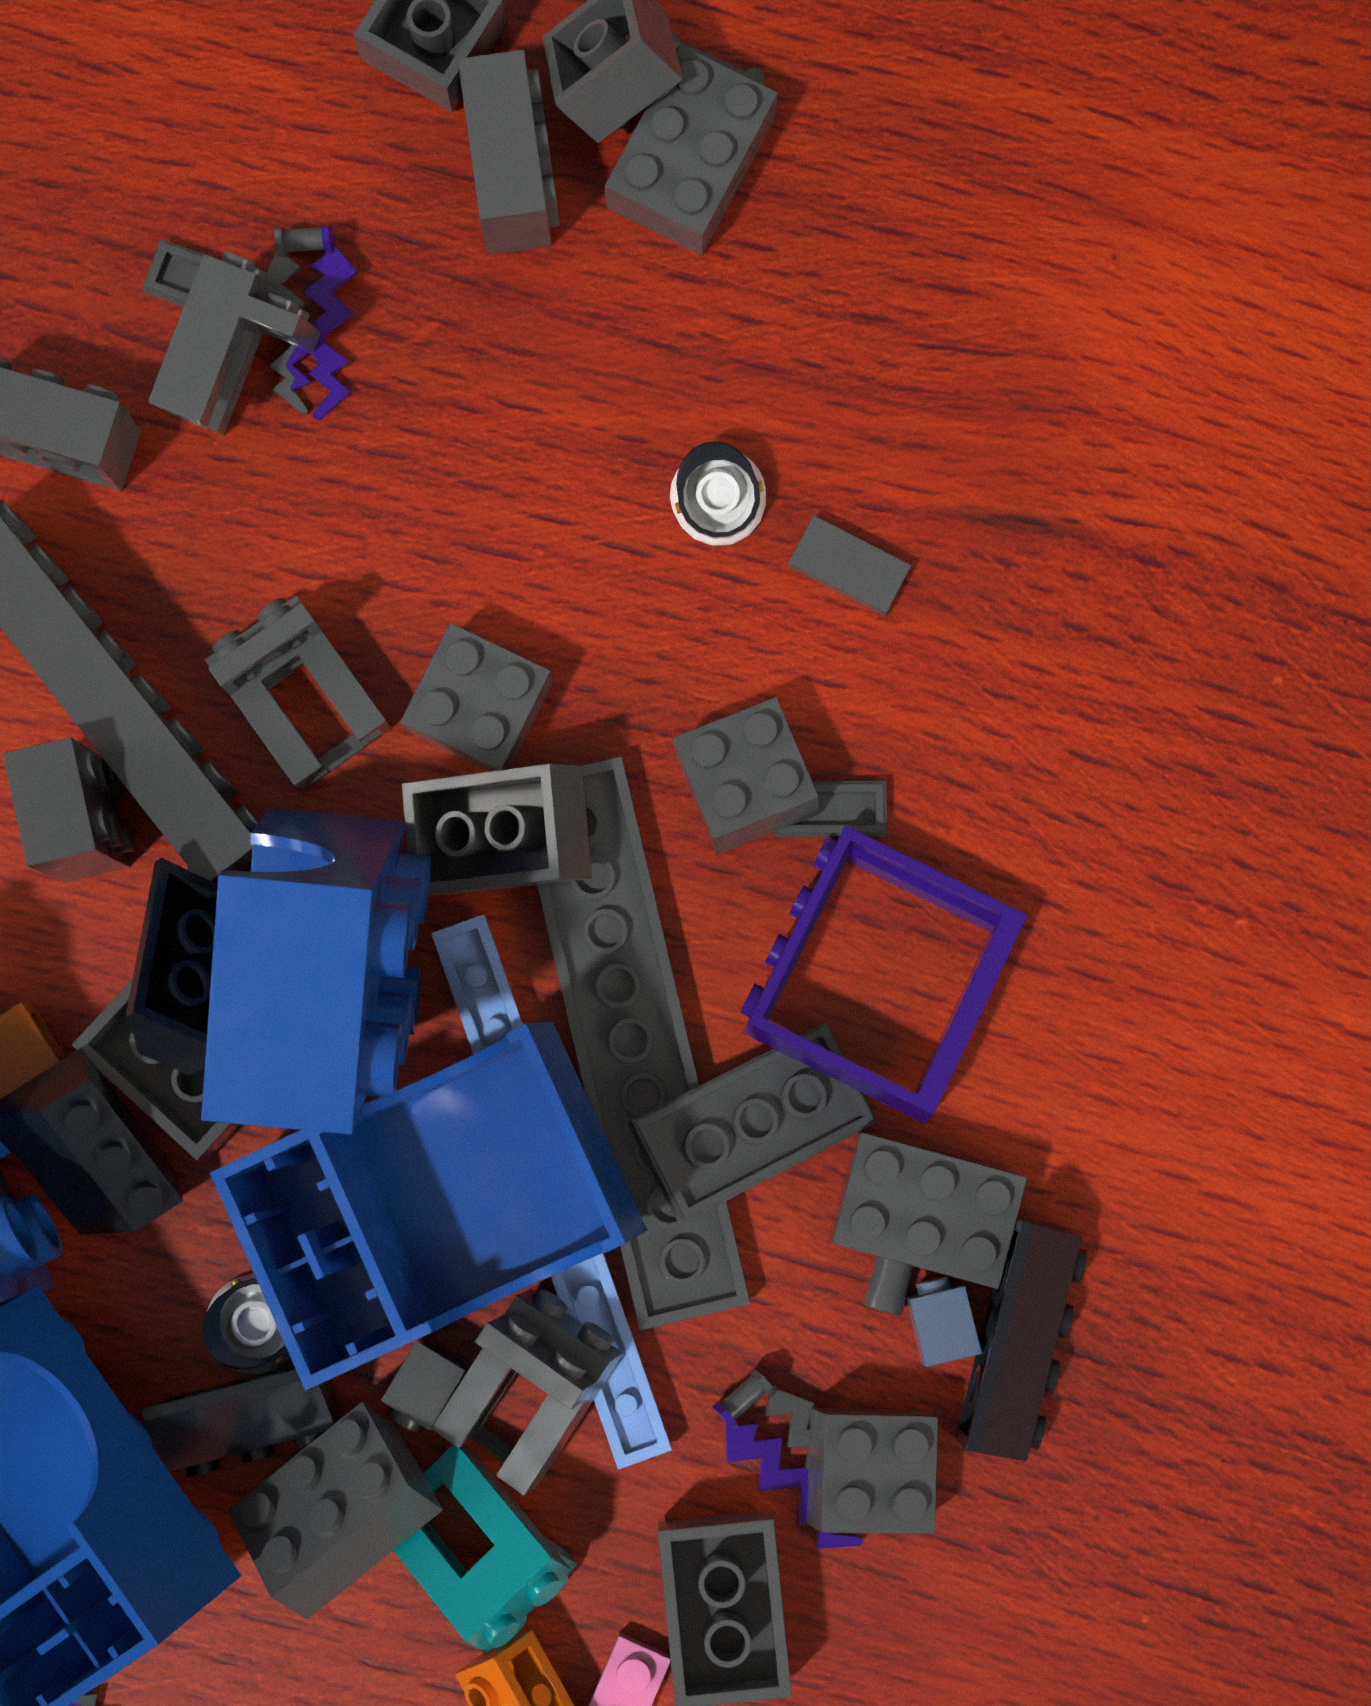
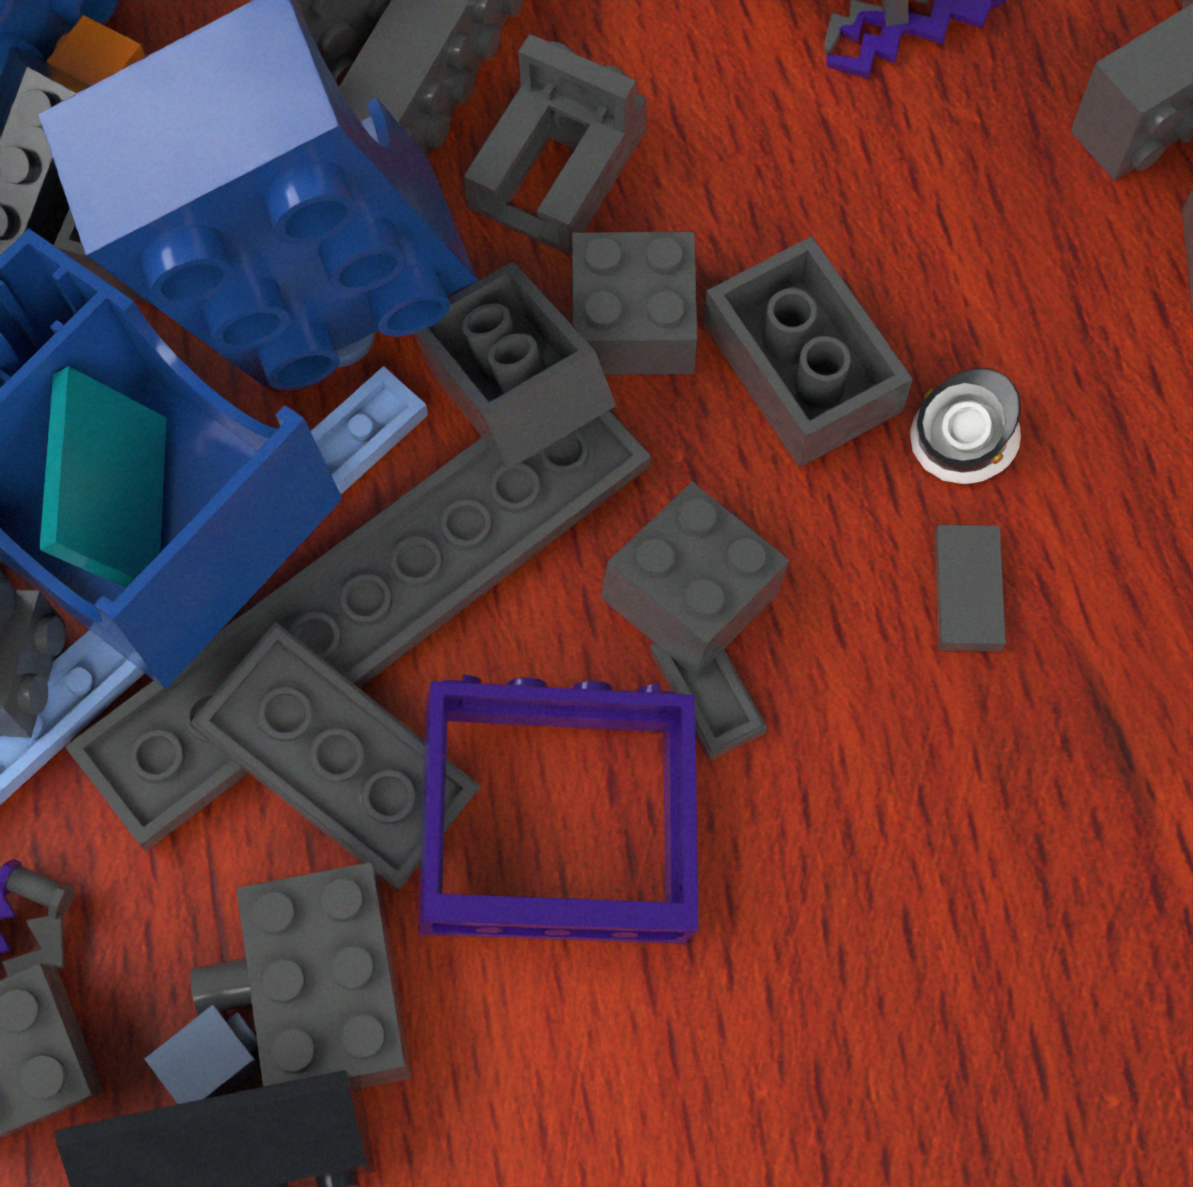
camera: 65 degrees right, 15 degrees down
(461, 1204) = (102, 479): none -> teal tile
(595, 587) = (806, 351): none -> dark grey brick

